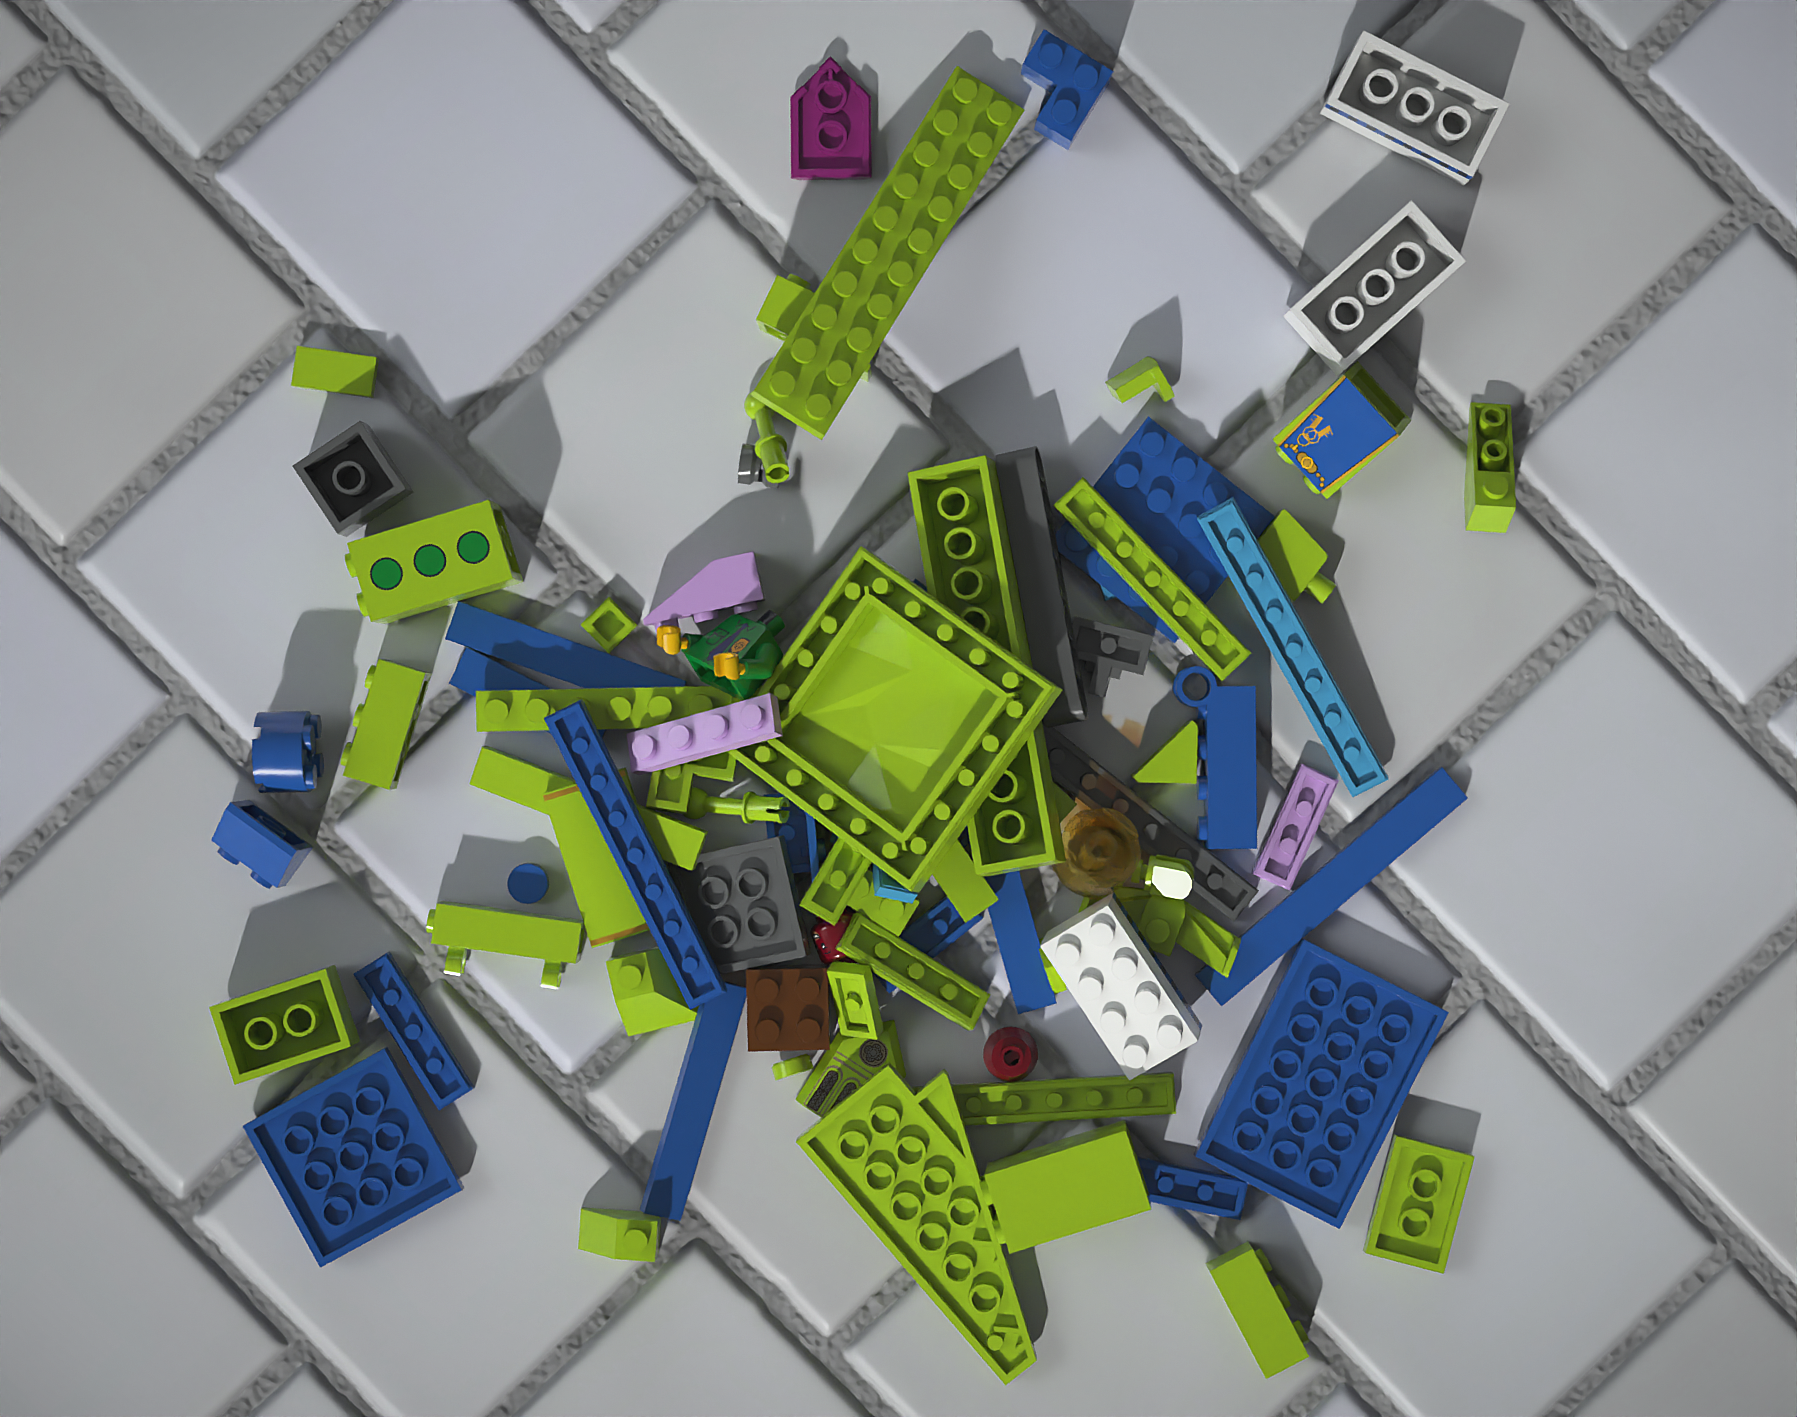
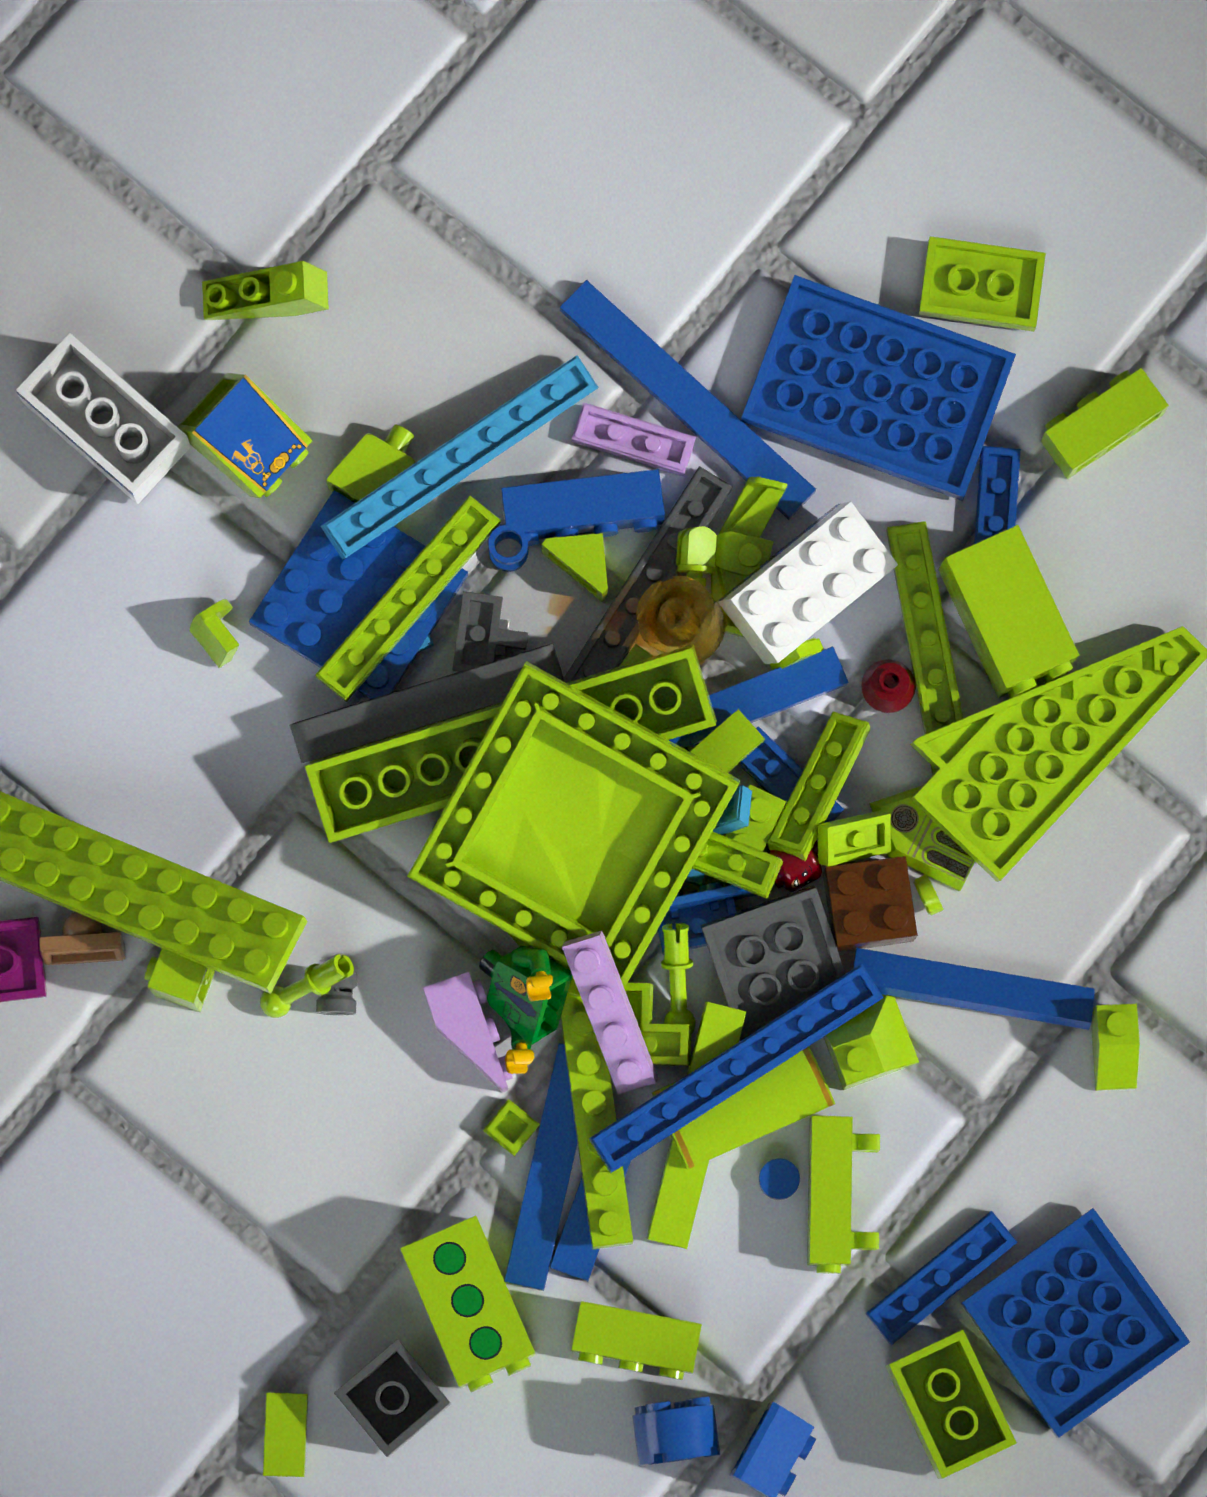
camera: 105 degrees left, 10 degrees down
(838, 216) = (82, 943): none -> medium nougat tile

